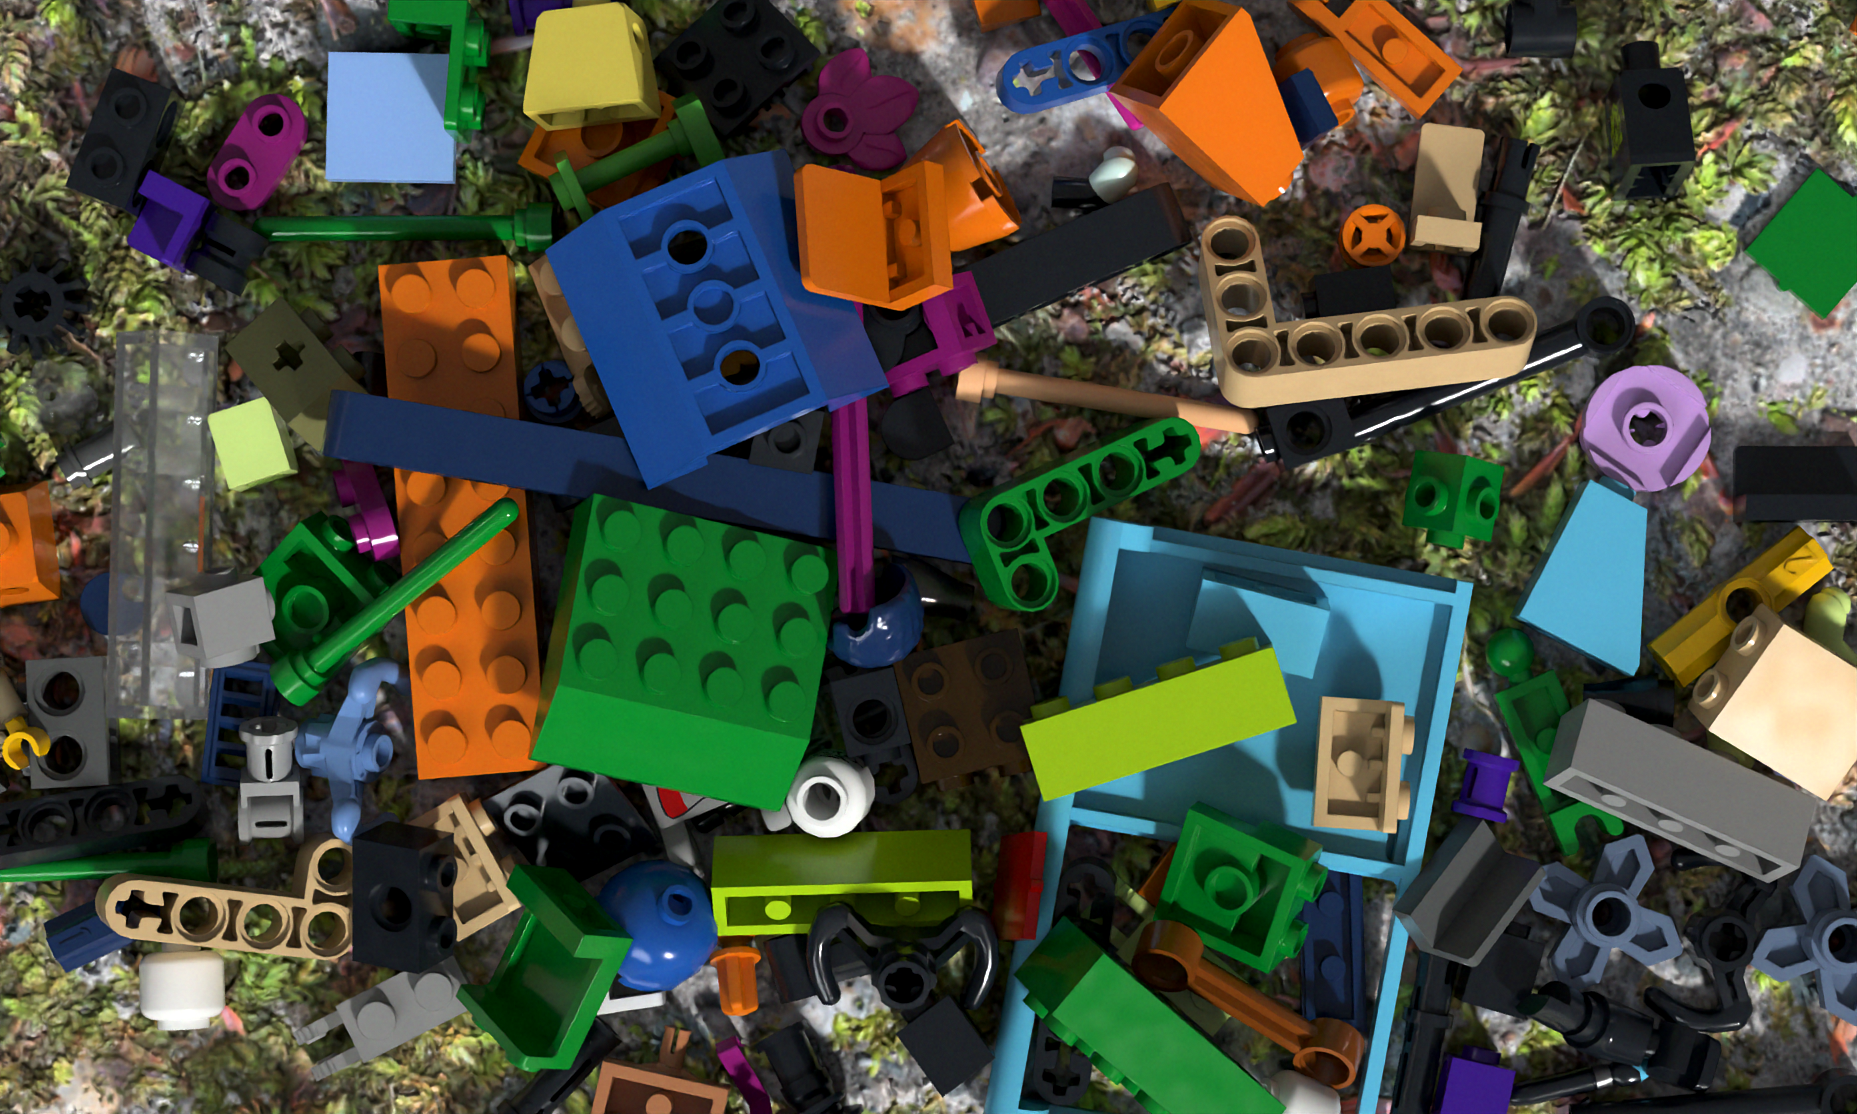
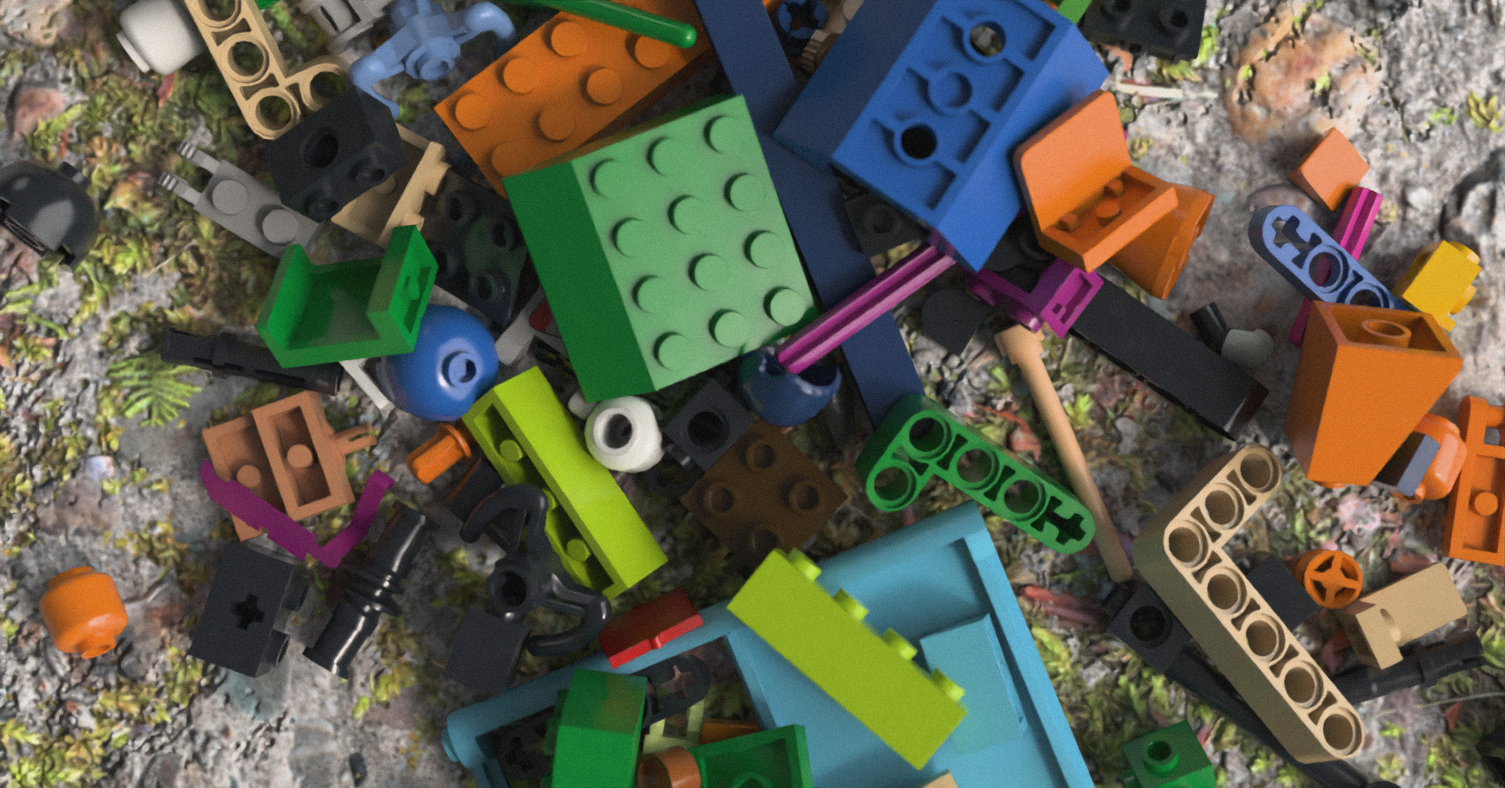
camera: 55 degrees right, 0 degrees up
(867, 107) = (1175, 121): dark pink plate -> none

